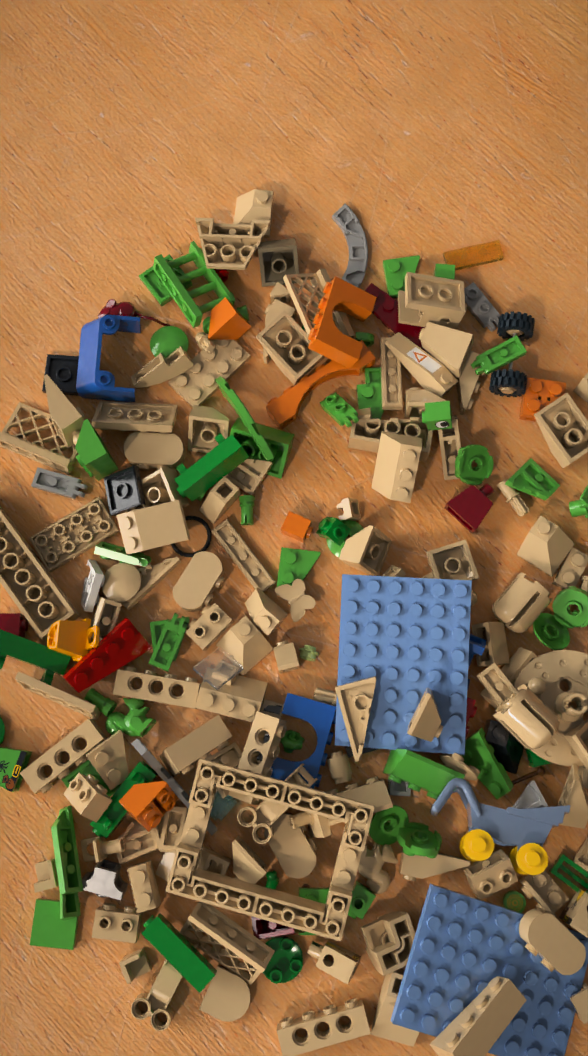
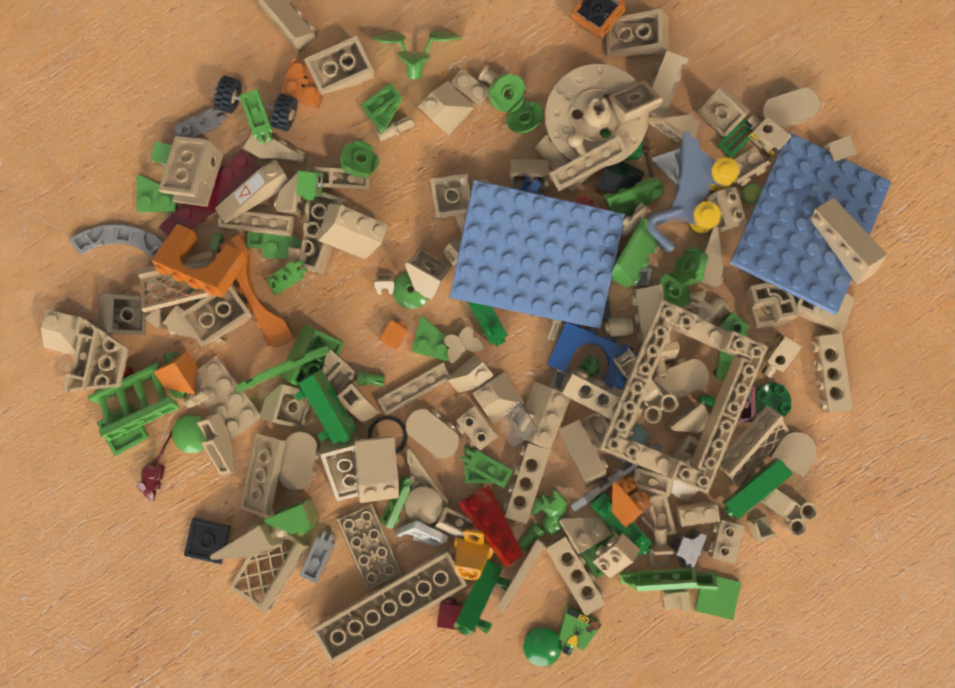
camera: 90 degrees left, 10 degrees up
(92, 381) = (219, 515): blue windscreen -> none
(124, 490) = (335, 493): black tile -> none
(286, 657) = (514, 361): tan slope -> none
(308, 653) = (513, 340): yellowish green plate -> none
(321, 625) = (489, 323): none -> green brick
(333, 529) = (402, 300): green bracket -> none
(355, 705) = (569, 303): tan wing -> none
(426, 719) = (591, 242): tan slope -> none
(447, 346) = (239, 163): tan slope -> none
(471, 506) = (398, 168): dark red torso -> none
(474, 255) = (145, 121): clear yellow tile -> none
(521, 604) = (497, 139): tan cylinder -> none
(527, 718) = (605, 153): tan cylinder -> none
(552, 942) = (789, 167): tan brick -> none

